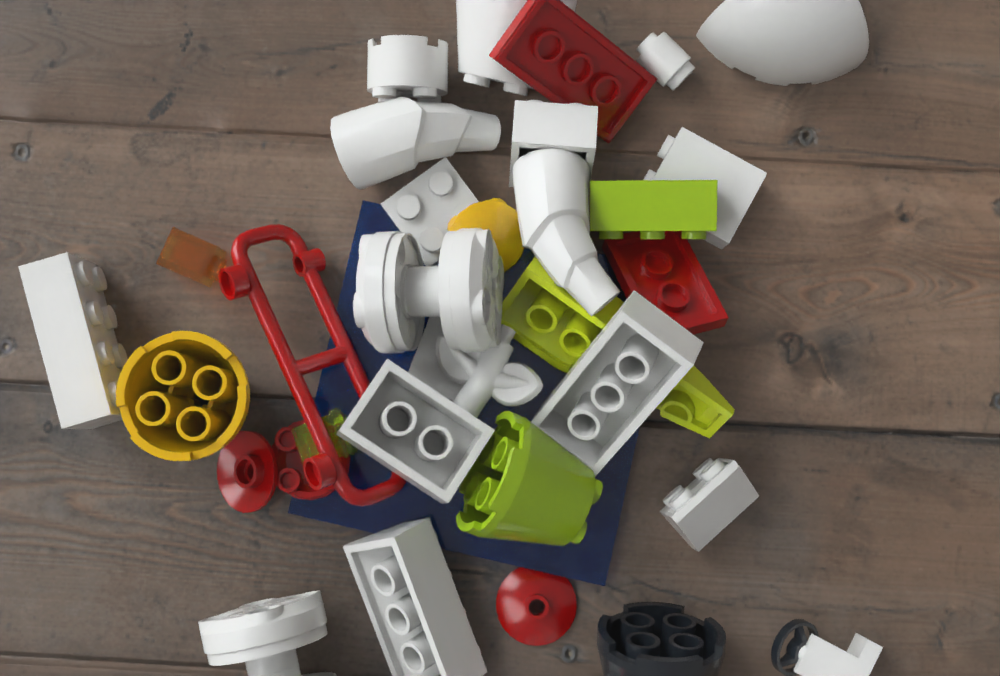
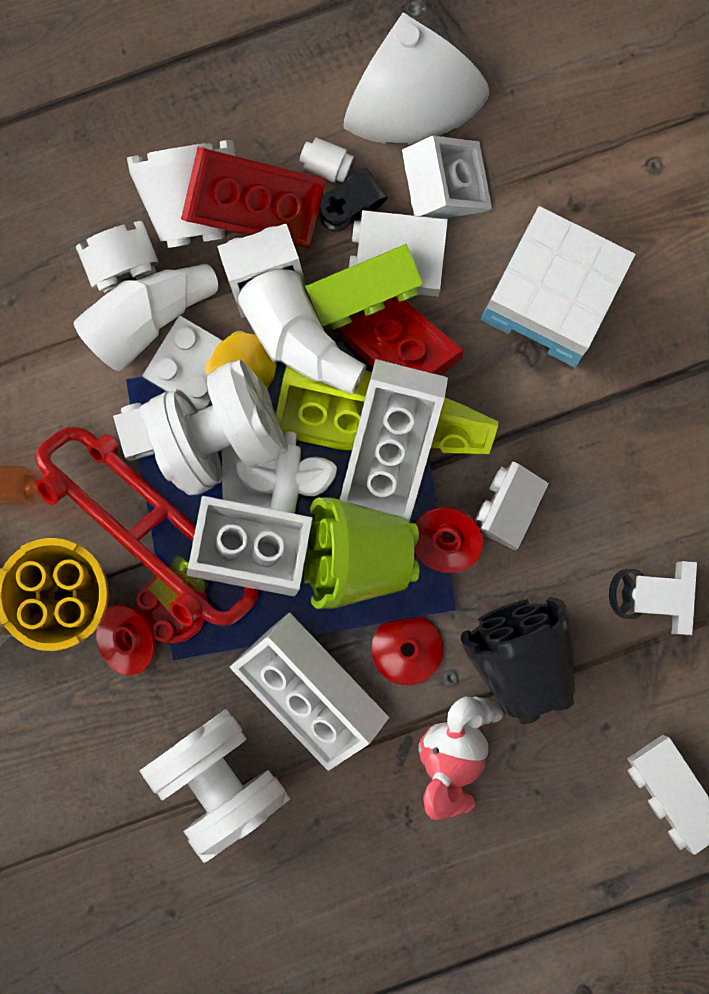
camera: 20 degrees left, 0 degrees up
(343, 258) = (133, 433): none -> white brick
(624, 525) = (447, 553): none -> red dish
(677, 109) = (354, 195): none -> black piece
(782, 129) = (446, 177): none -> white slope
(860, 292) = (558, 286): none -> white piece

